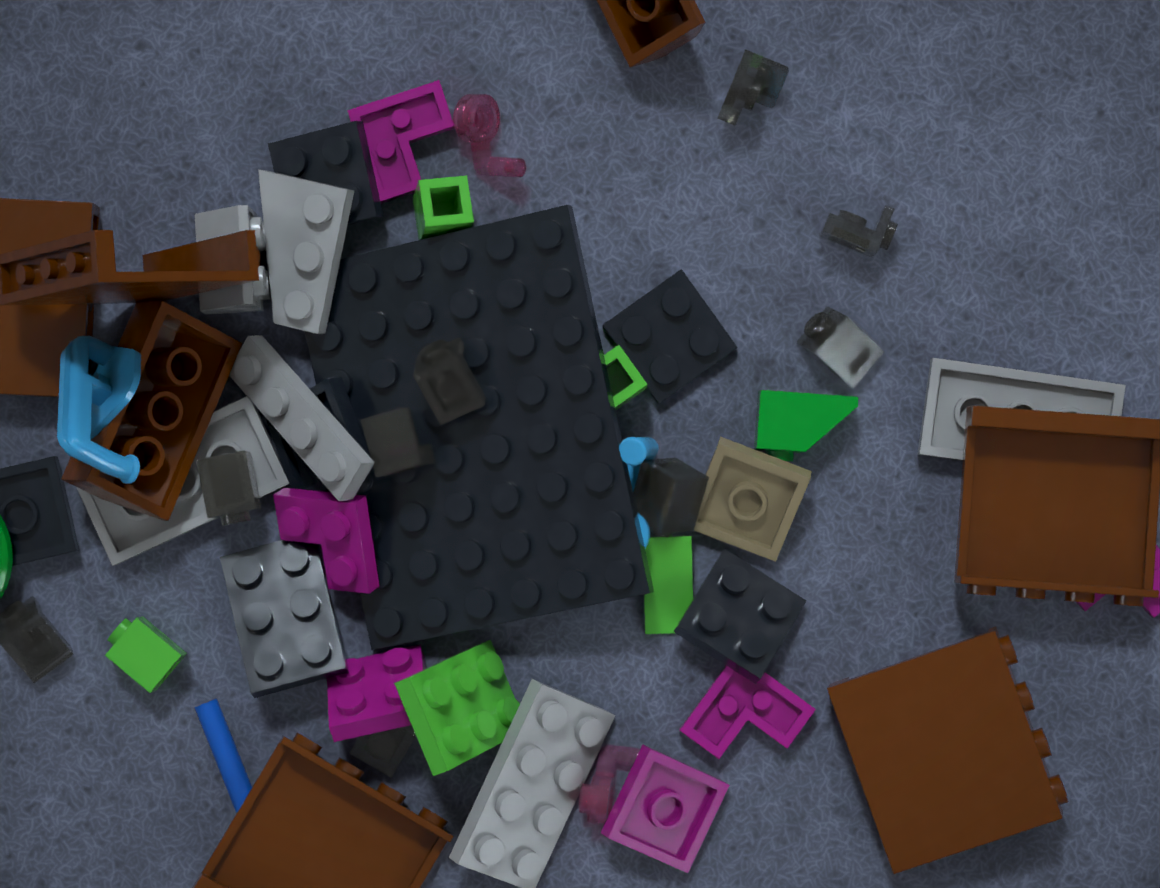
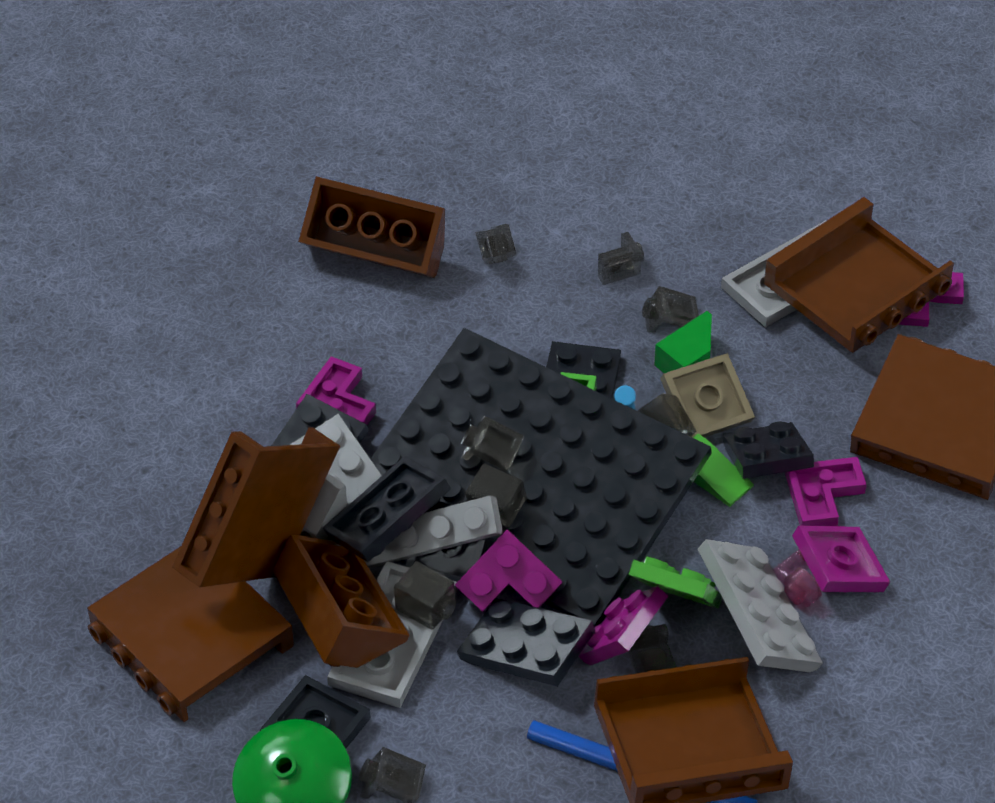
camera: 45 degrees left, 40 degrees down
(94, 401) = (306, 592): dark azure piece -> none
(144, 652) = (467, 726): bright green brick -> none
(276, 360) = (386, 508): none -> black plate
(442, 206) = (393, 395): bright green brick -> none
(478, 122) = (373, 362): clear pink plate -> none

